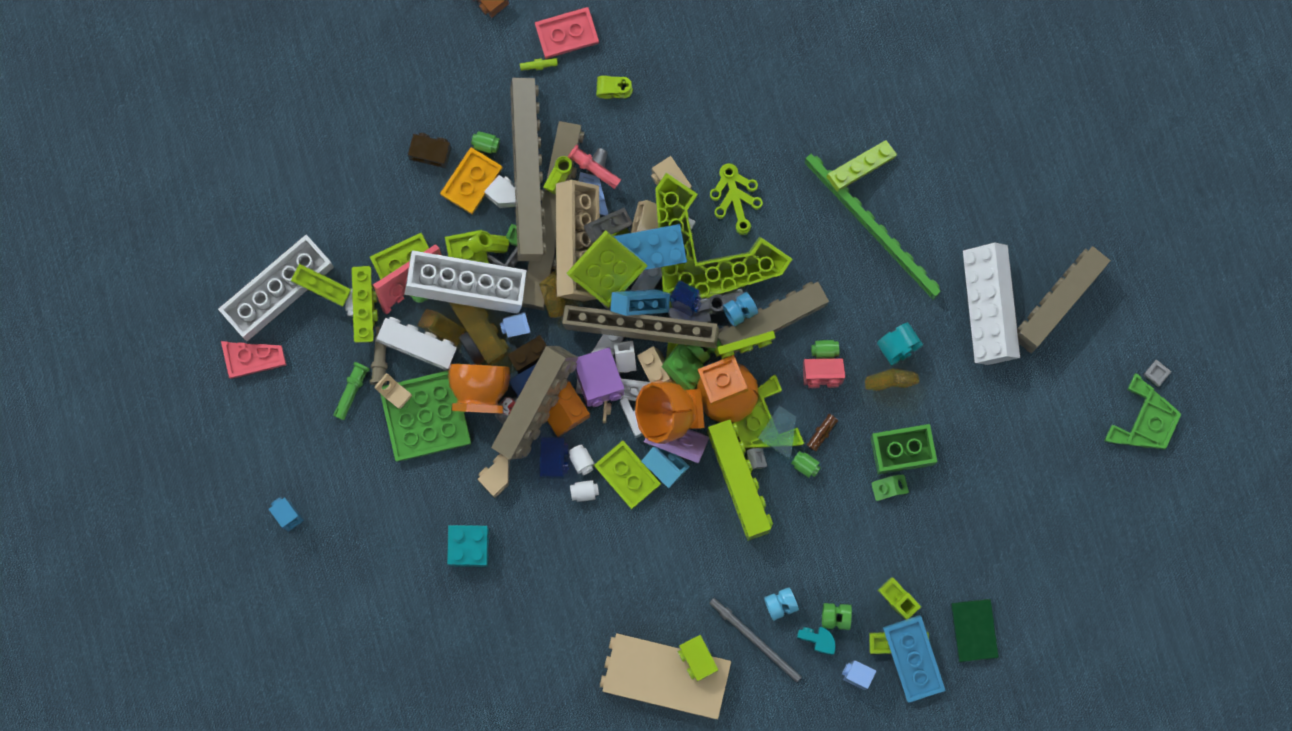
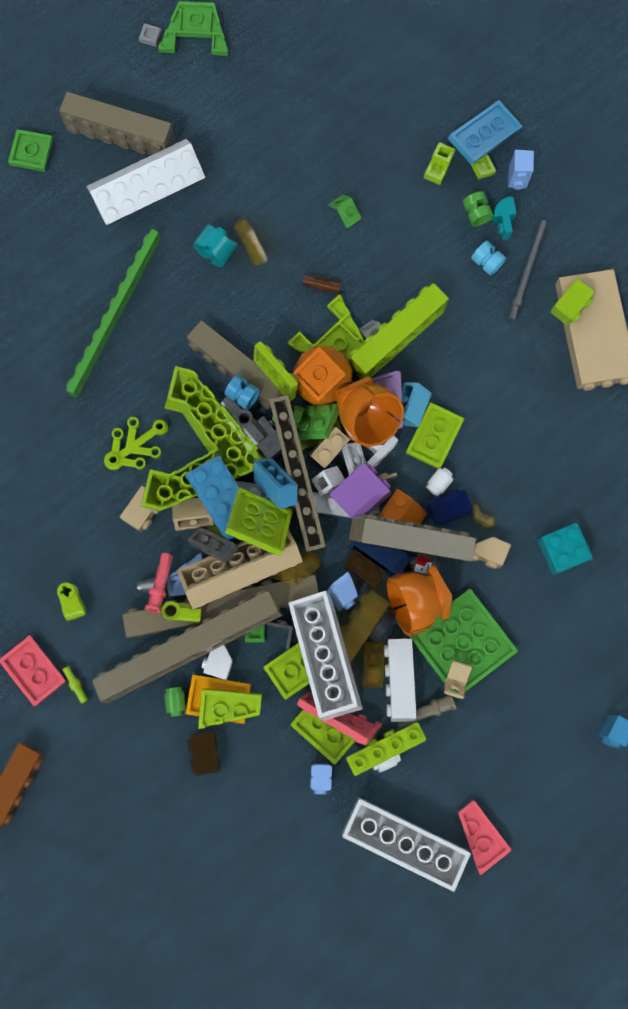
camera: 115 degrees left, 0 degrees up
(320, 285) = (386, 798): lime tile -> none
(354, 382) = (461, 724): bright green pin -> none
(364, 238) = (321, 777): none -> light blue brick
(461, 182) = (225, 706): none -> lime wing
(490, 243) = (274, 653): lime piece -> none
(530, 483) = (482, 519): none -> clear yellow arm
(584, 491) = (467, 467): white brick -> none
(685, 298) = (254, 440): clear blue brick -> none
(780, 432) = (338, 317): clear light blue wing -> none
(806, 464) = (357, 285): bright green brick -> none
(823, 372) = (267, 300): coral slope -> none
(825, 349) = (245, 309): bright green brick -> none
(861, 165) = (60, 342): lime plate -> none
(903, 449) = (308, 207): bright green brick -> none
(974, 630) = (436, 98): dark green tile -> none
(1073, 210) = (30, 150): none -> bright green plate

